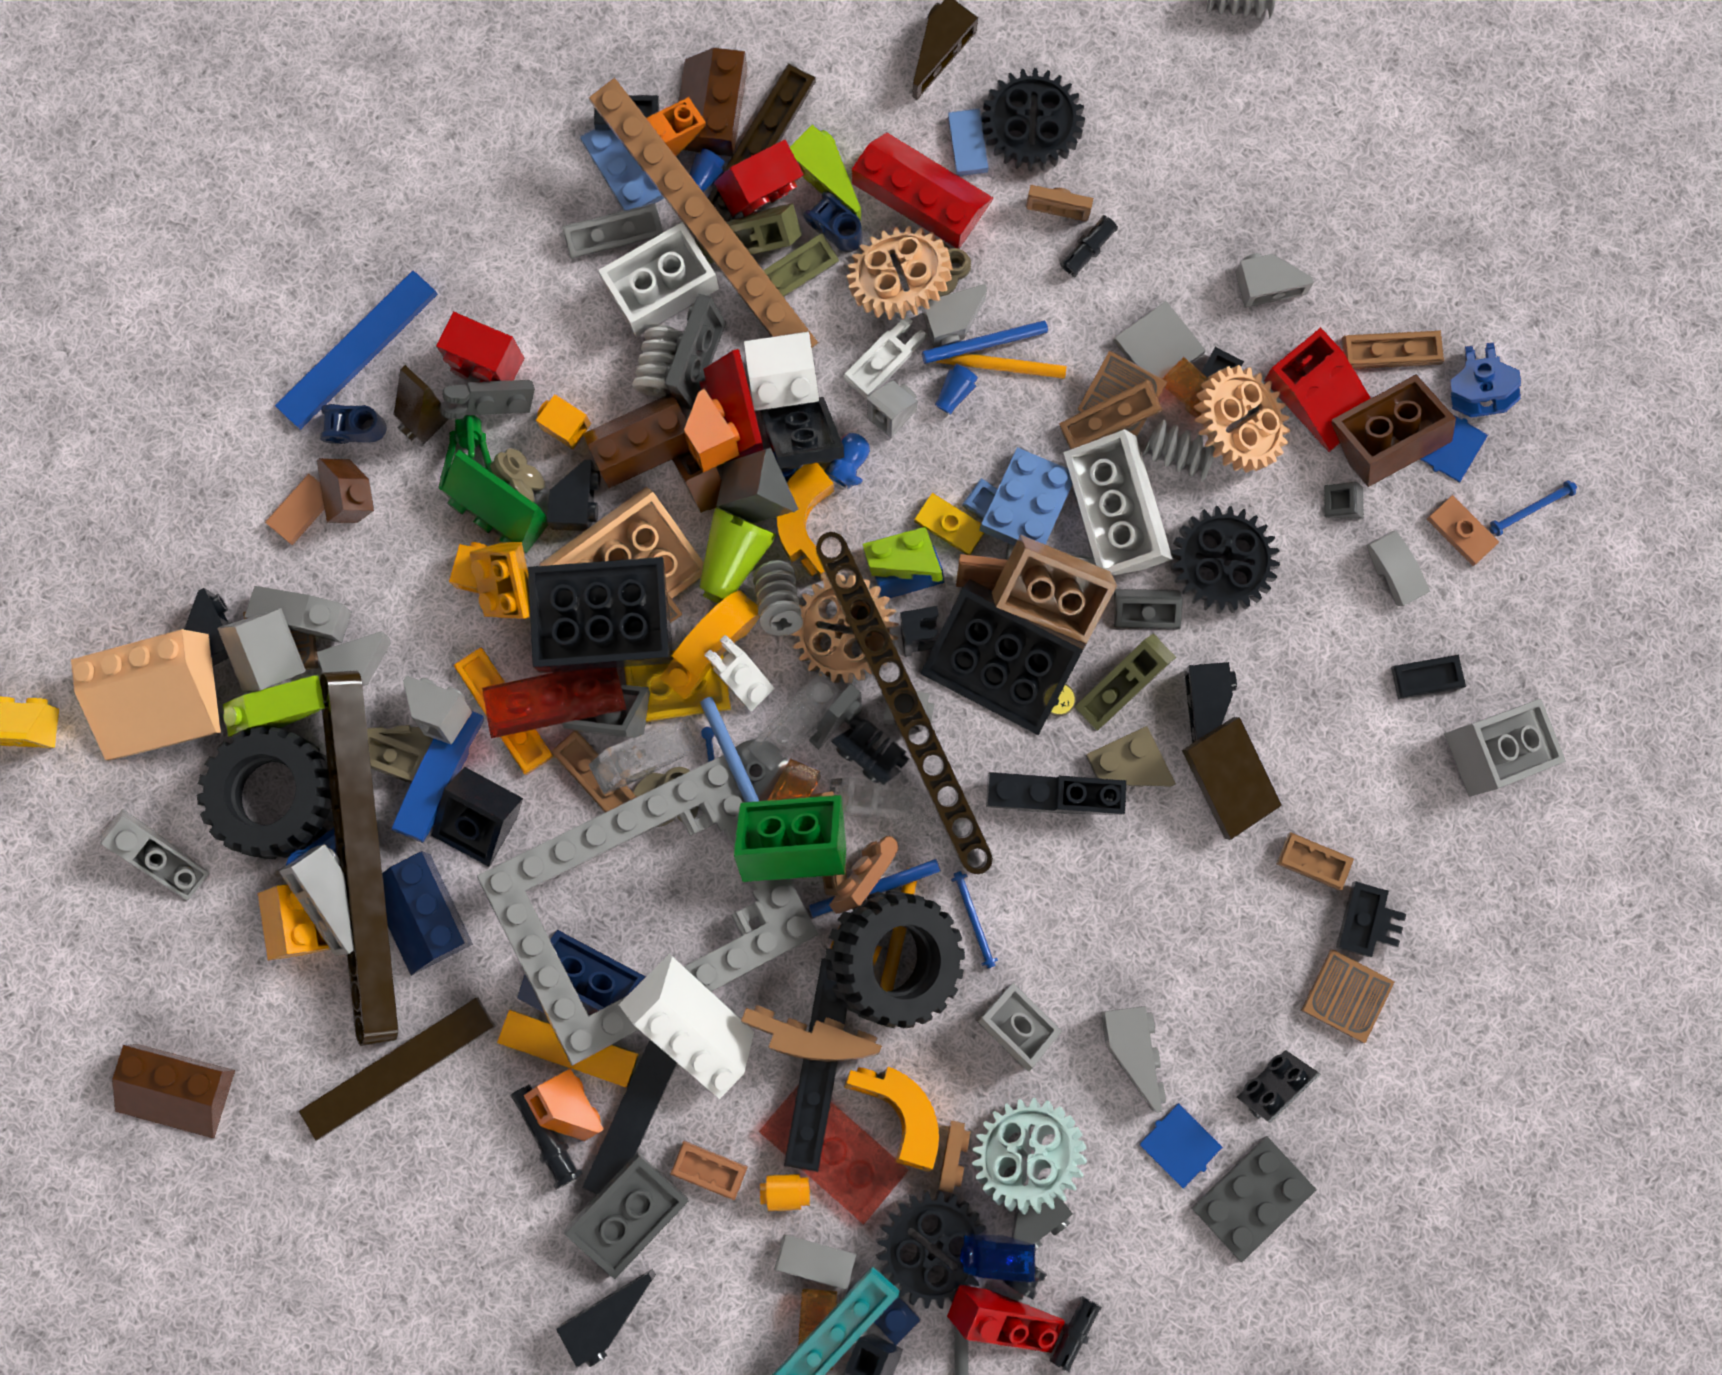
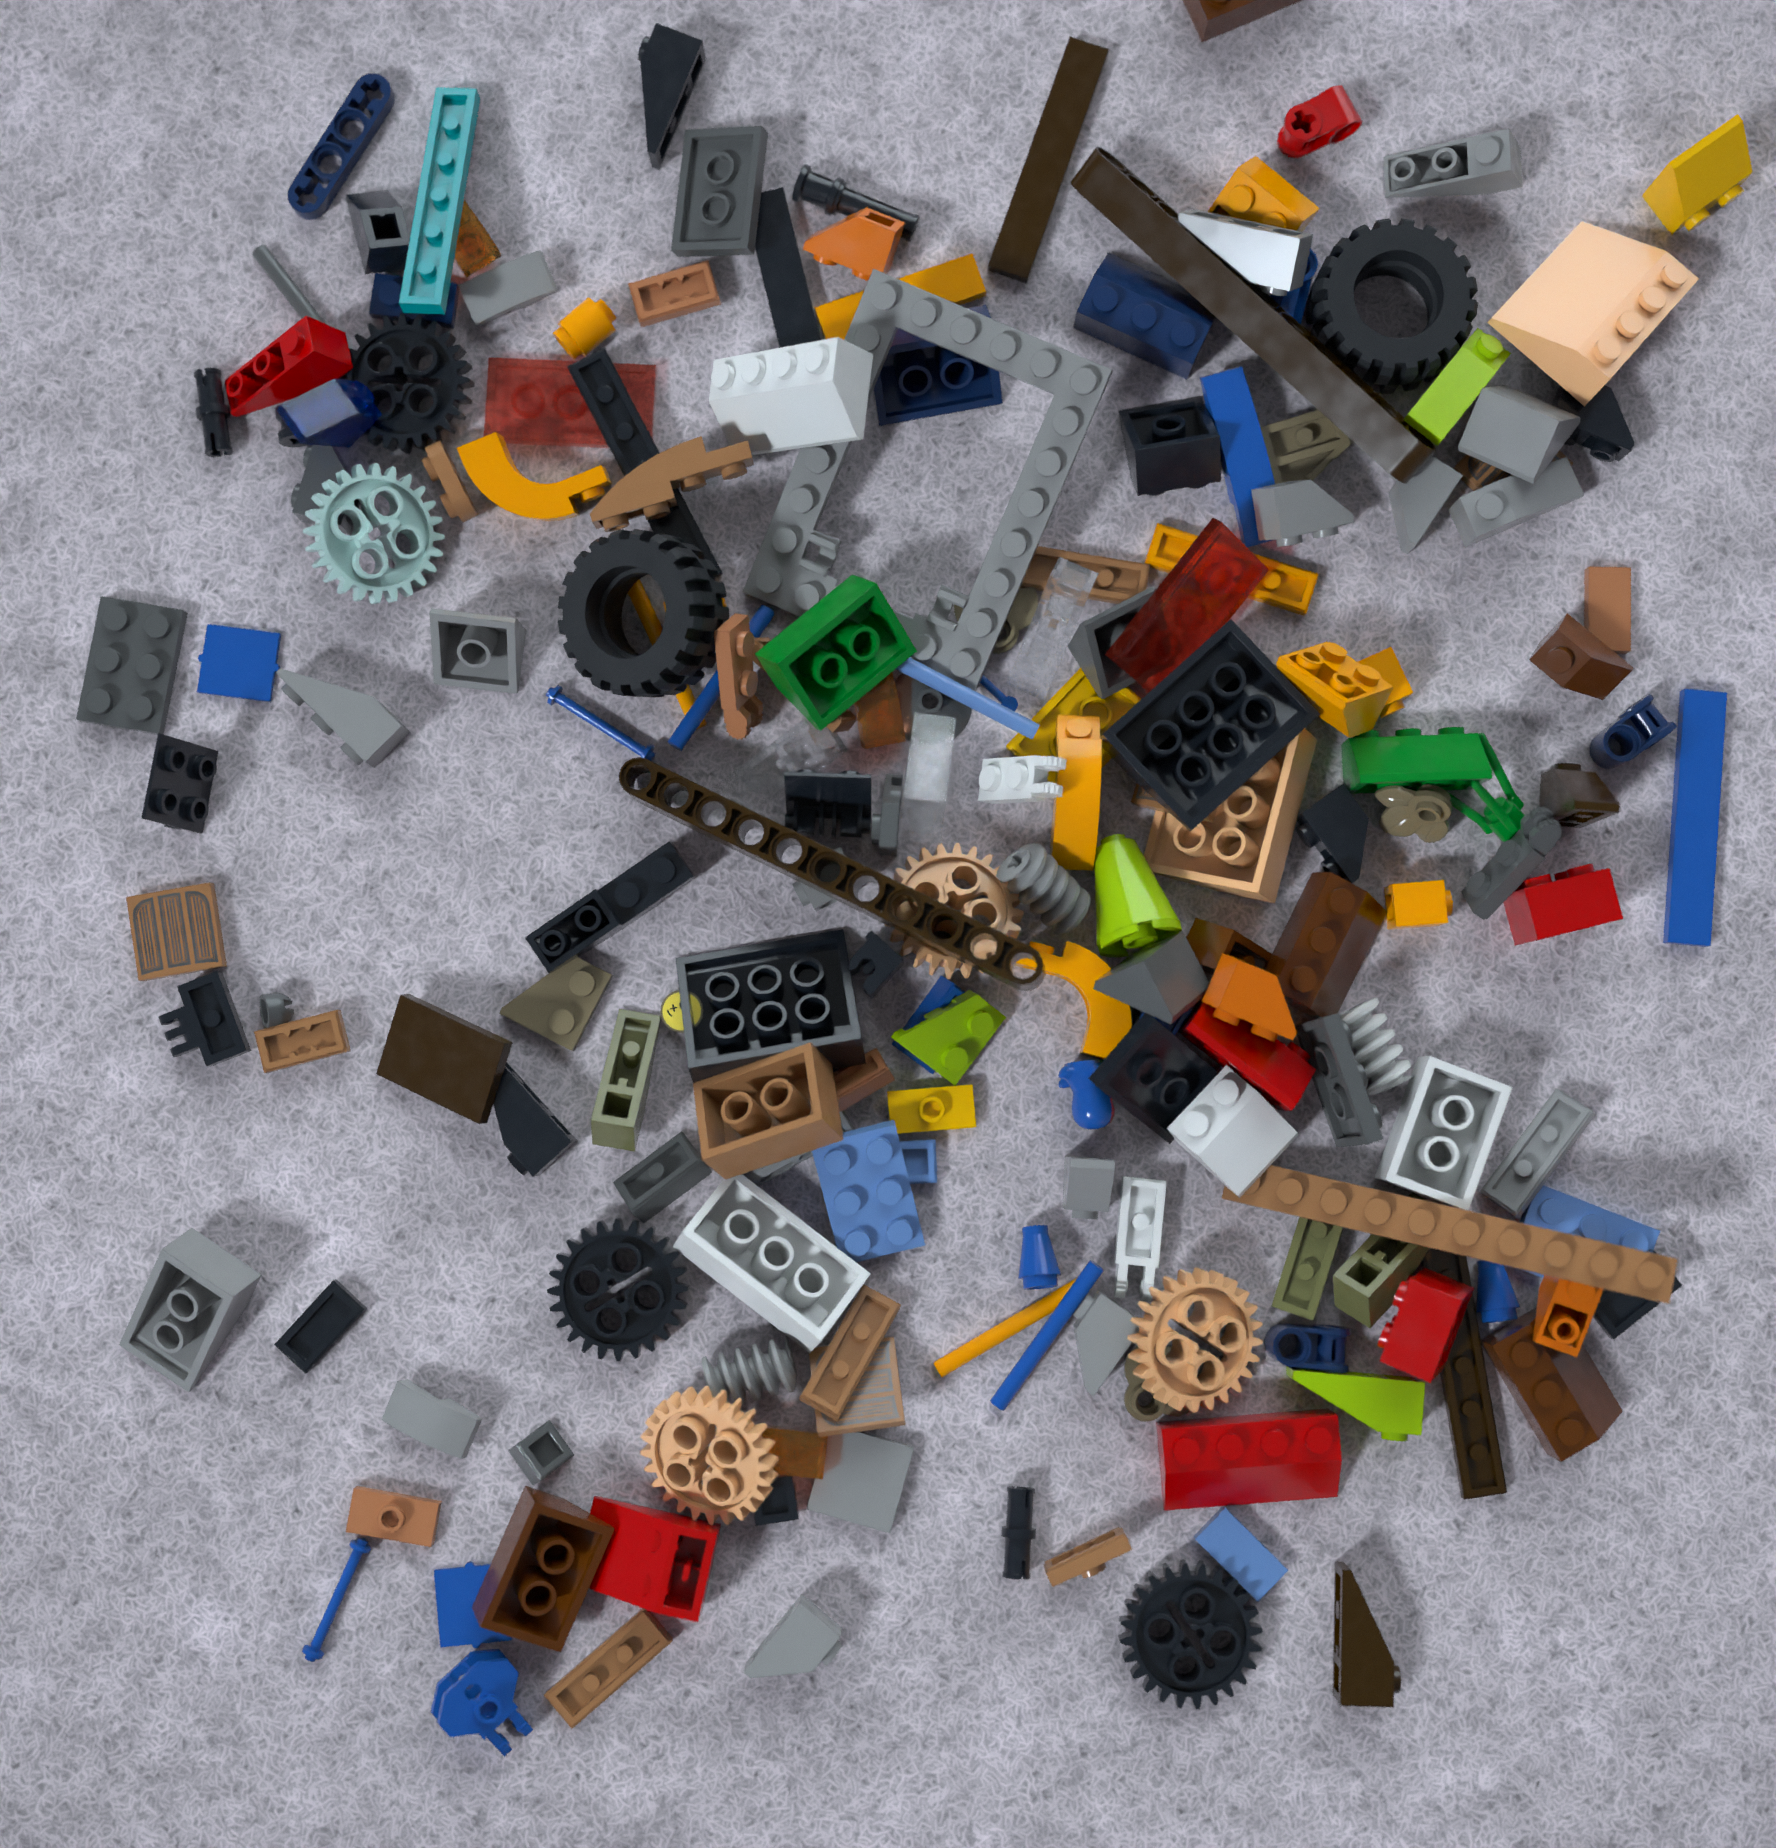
camera: 145 degrees right, 5 degrees up
(206, 952) = (1318, 123): none -> red piece
(1319, 895) = (273, 1009): none -> dark grey hinge

